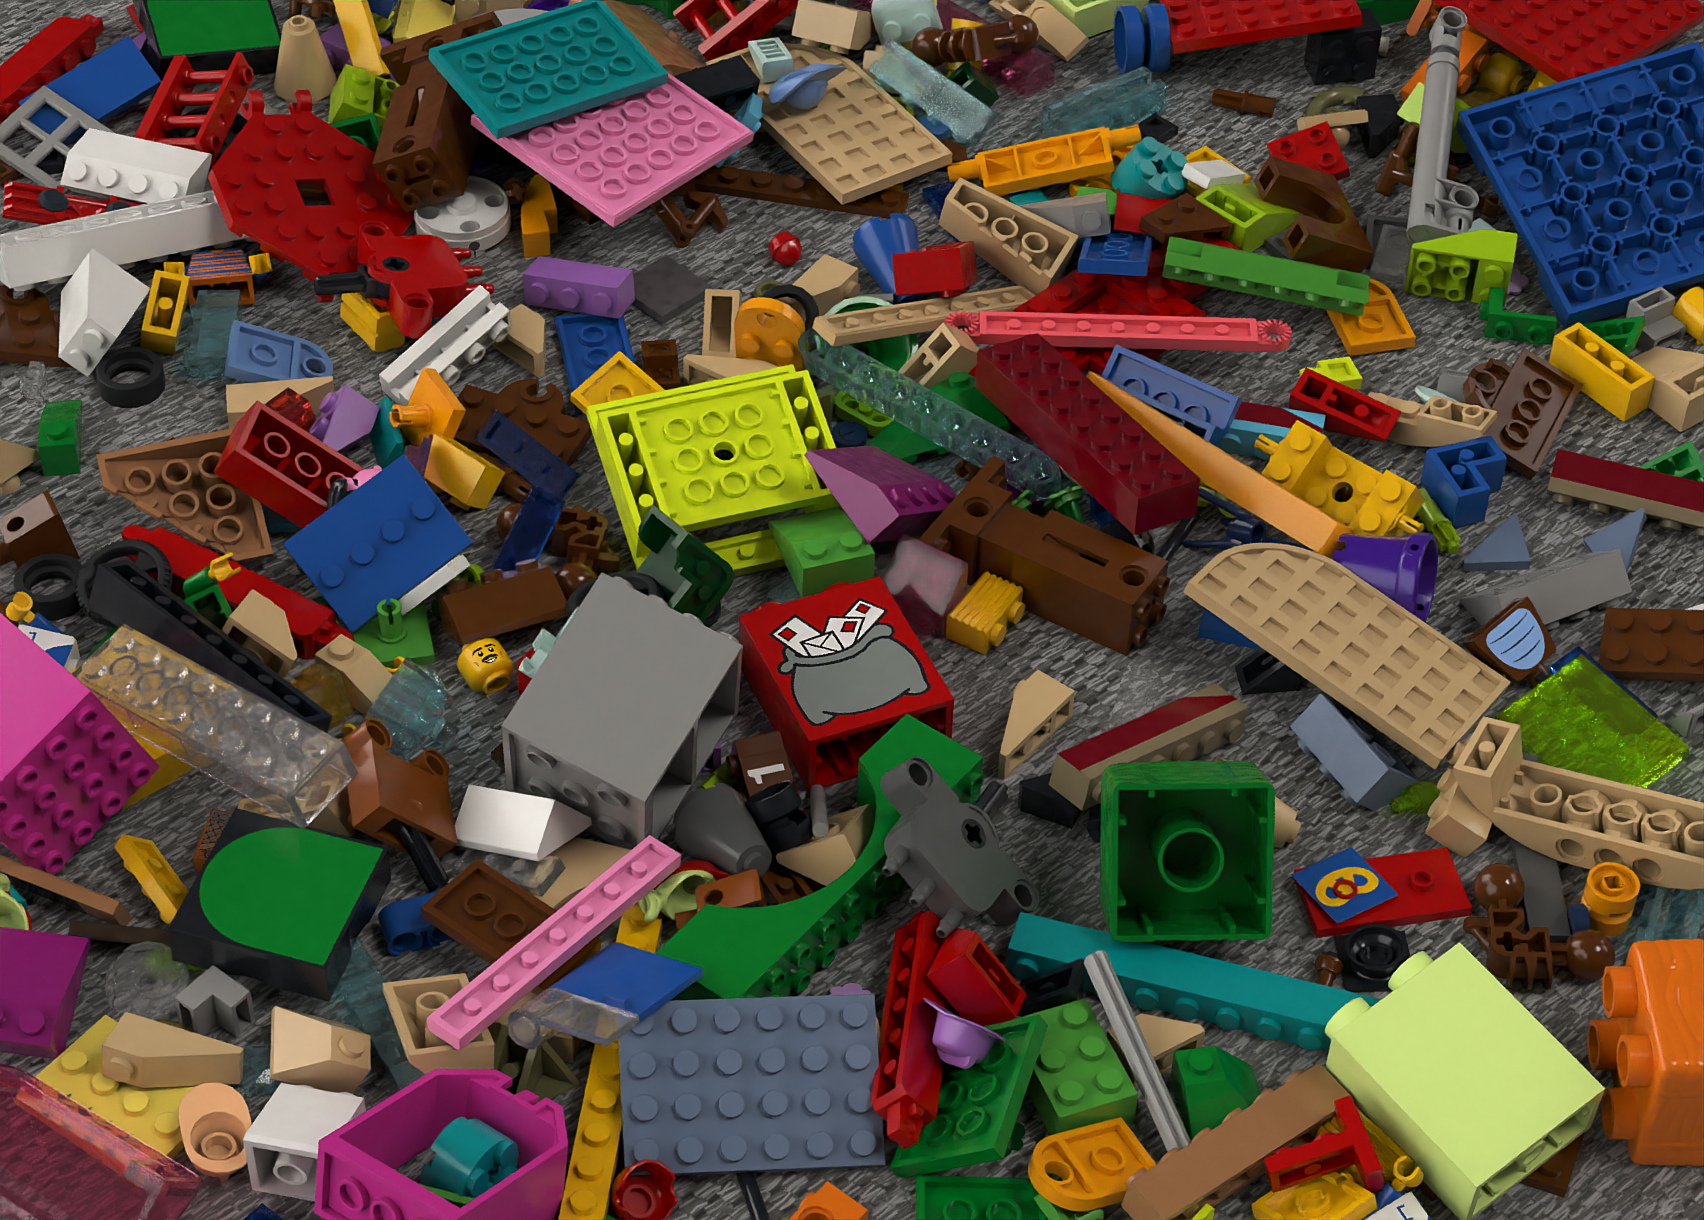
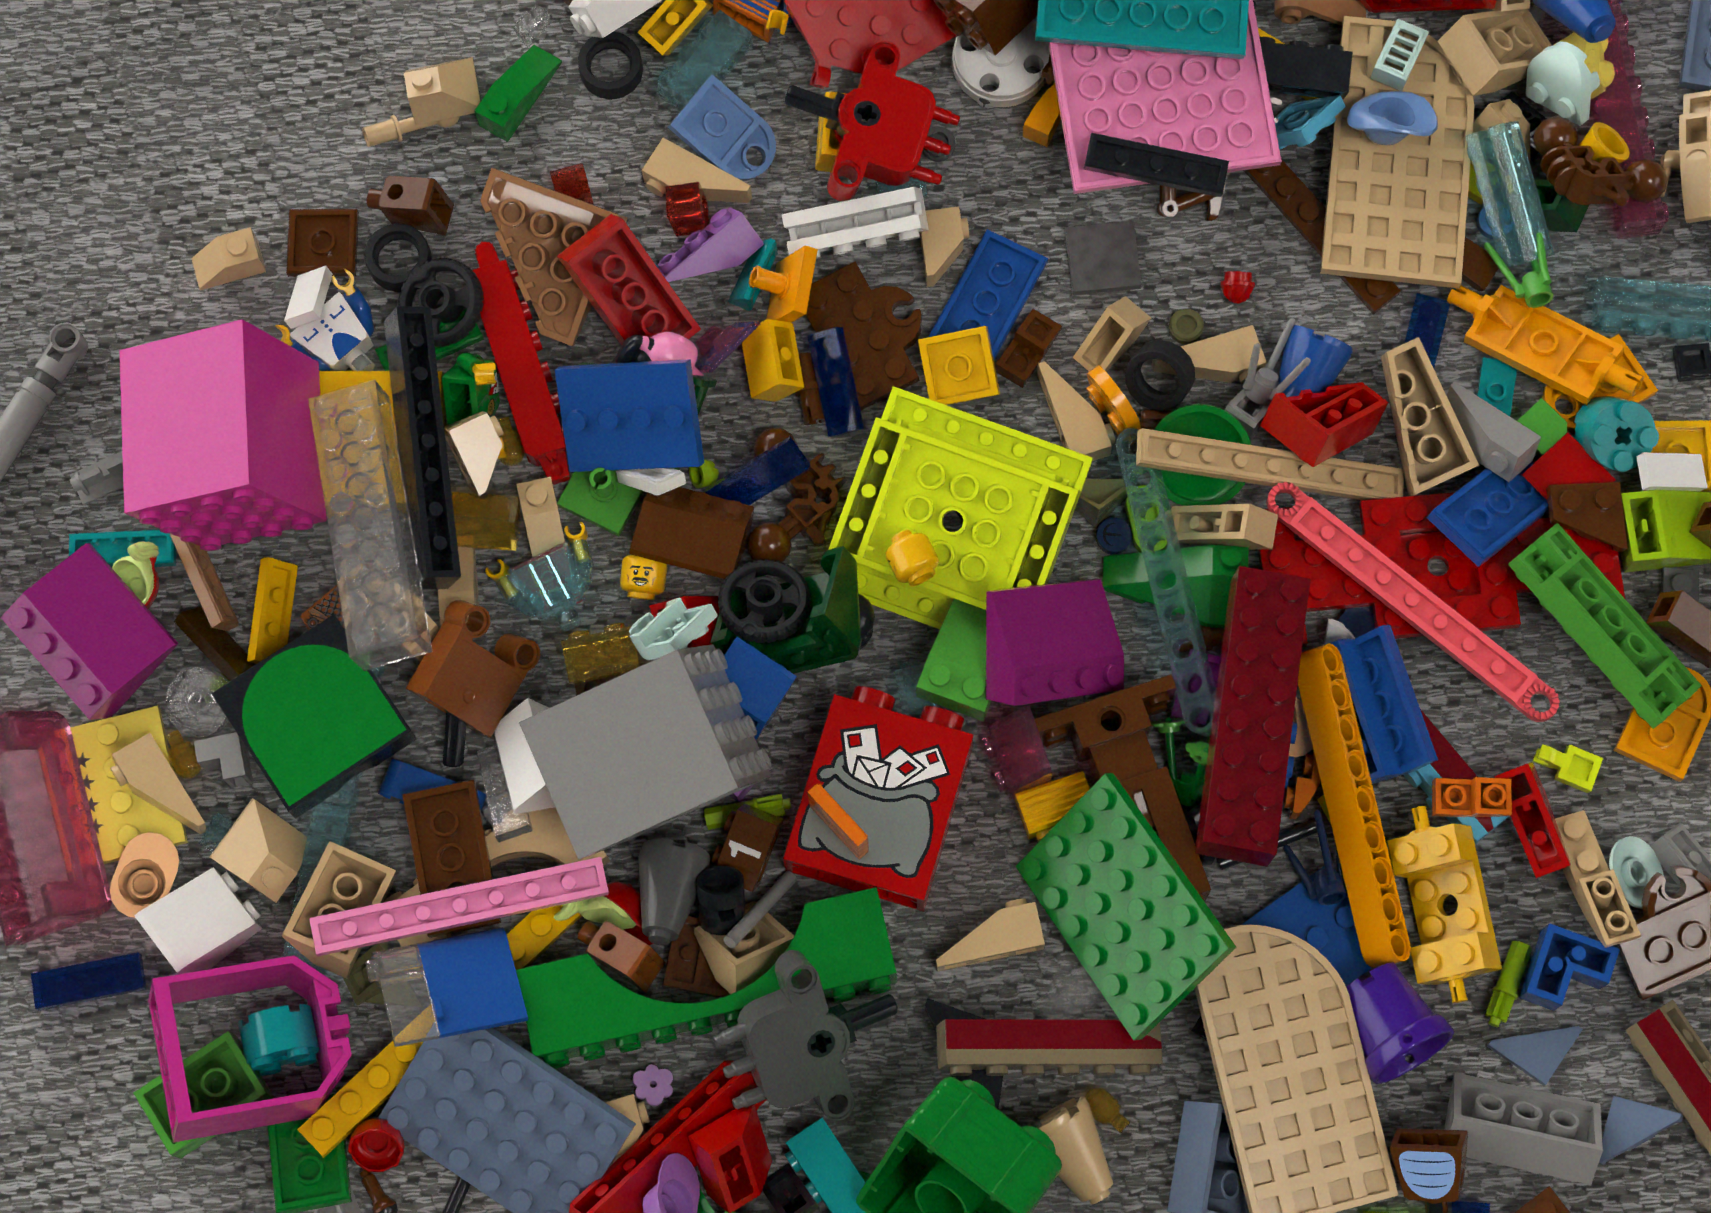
camera: 45 degrees right, 30 degrees up
(485, 717) = (599, 654): none -> clear yellow bracket
(579, 287) = (1024, 216): medium lavender brick -> none
(662, 171) = (1156, 165): none -> black tile
(716, 486) = (912, 558): none -> yellow head
(836, 667) = (838, 821): none -> orange tile
(869, 280) = (1263, 384): none -> light grey plant
(1003, 130) = (1535, 284): none -> bright green plant
(1115, 608) = (1125, 906): none -> green plate
(1295, 404) = (1471, 797): none -> orange slope

